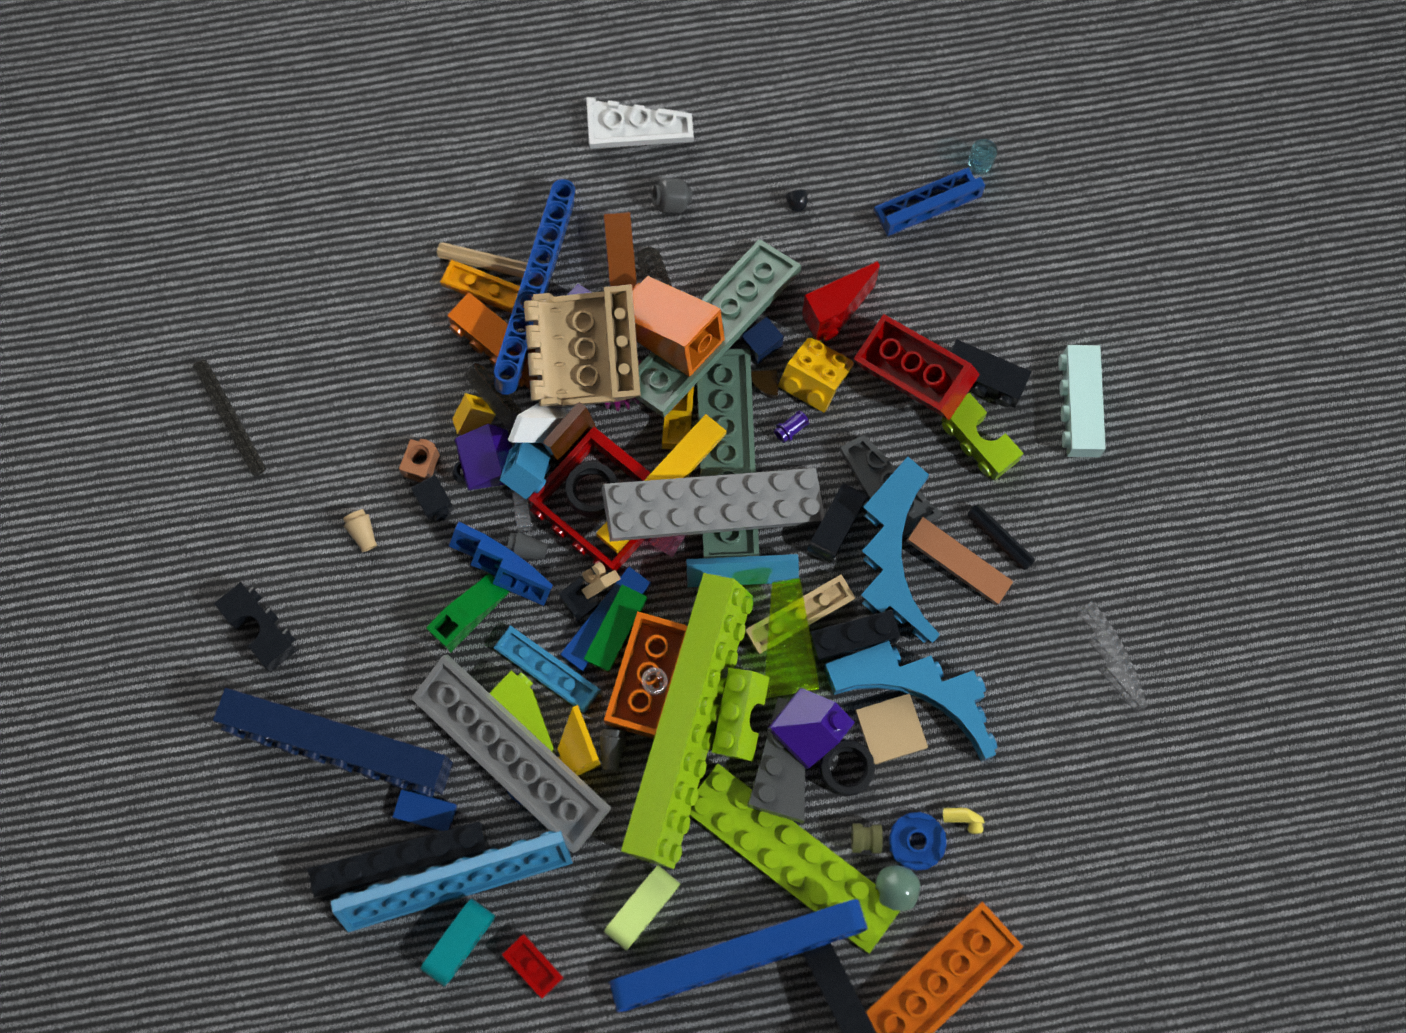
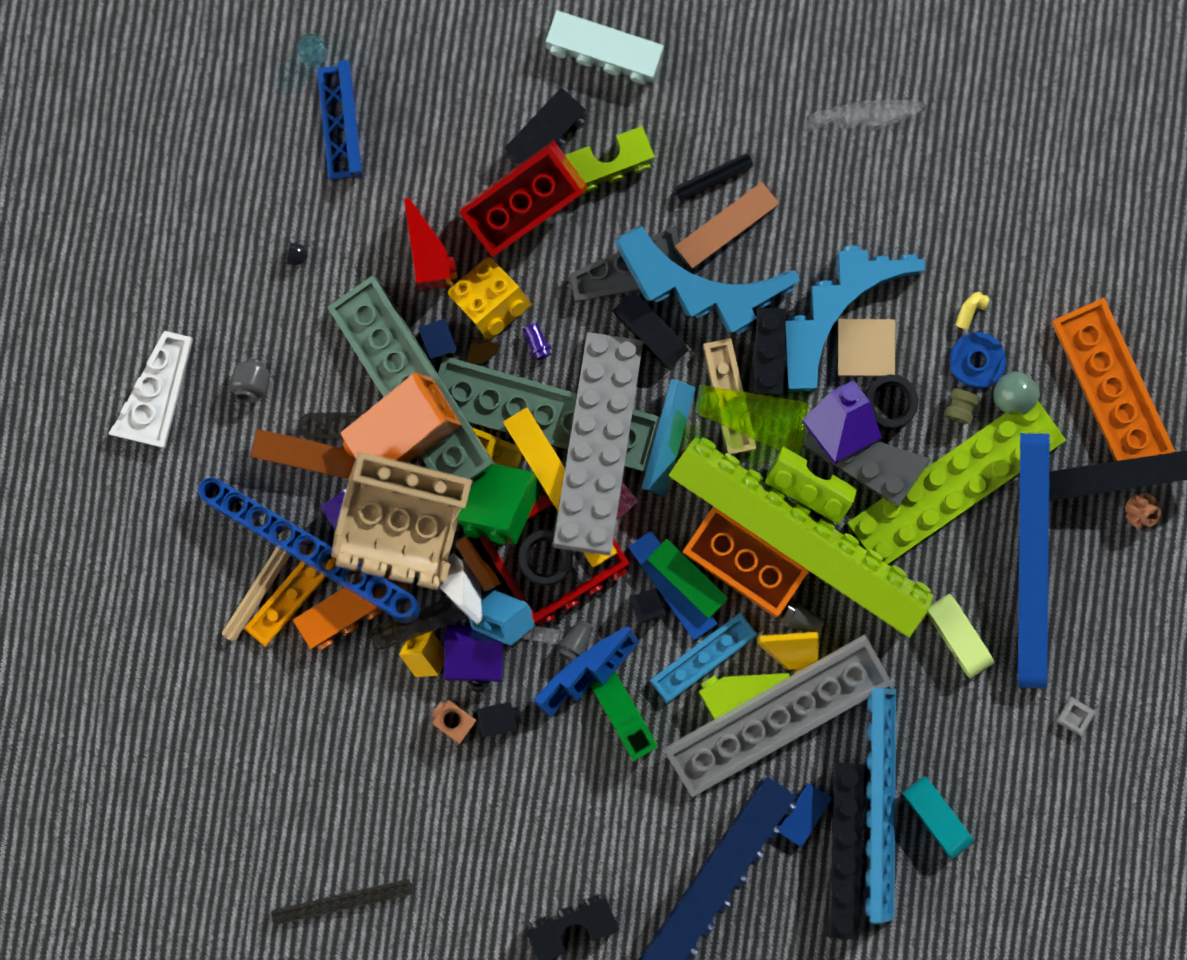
camera: 75 degrees left, 10 degrees up
(360, 529) = (505, 800): tan cone -> none
(533, 966) = (981, 753): red plate -> none
(599, 581) = (637, 580): tan tile -> none
(628, 434) = (499, 504): none -> green brick
(659, 674) = (752, 549): clear bush -> none

